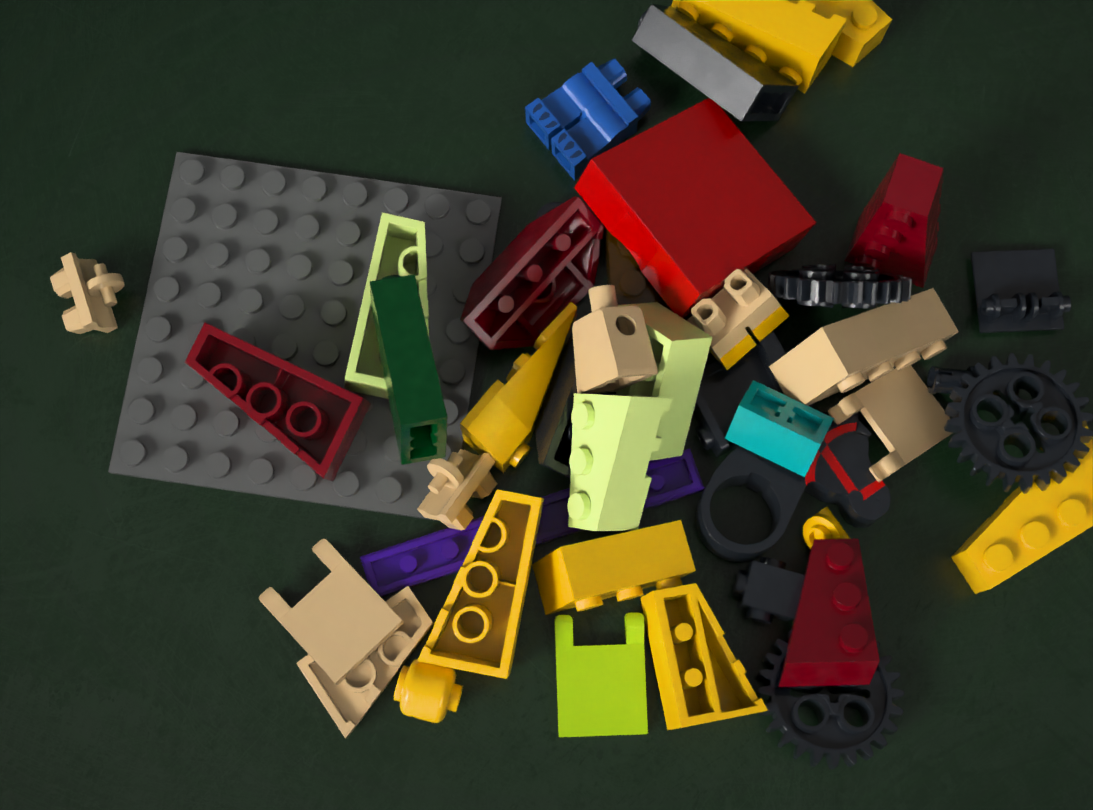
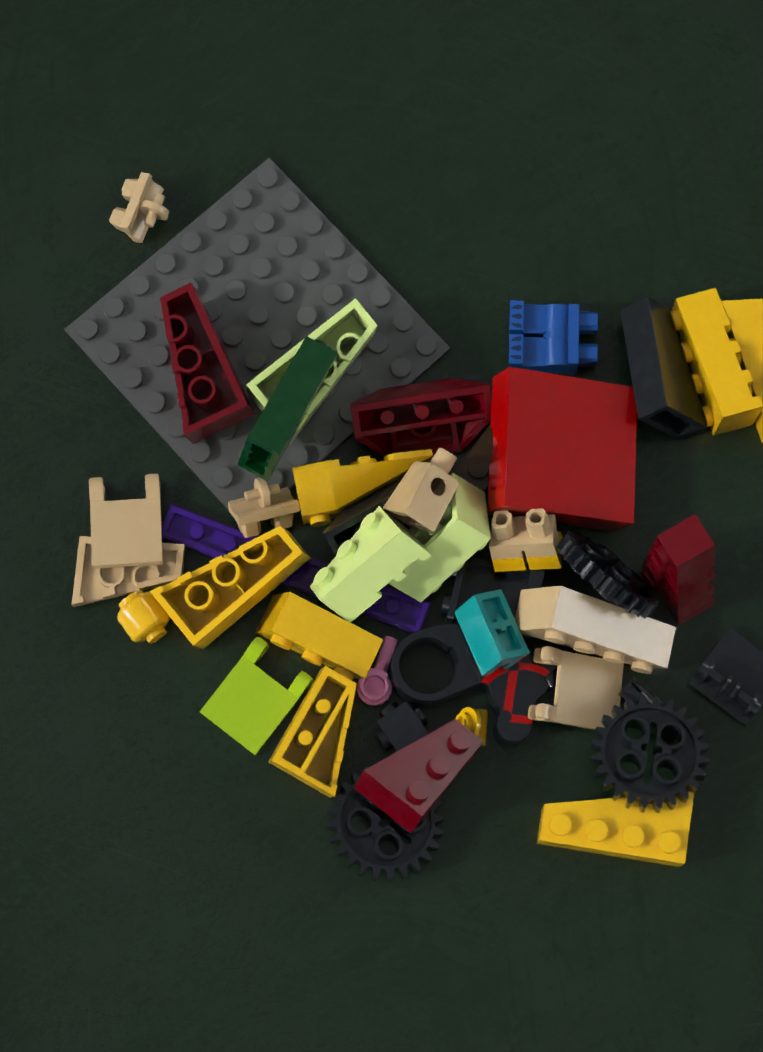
camera: 45 degrees right, 0 degrees up
(710, 568) = (377, 686): none -> bright pink plate

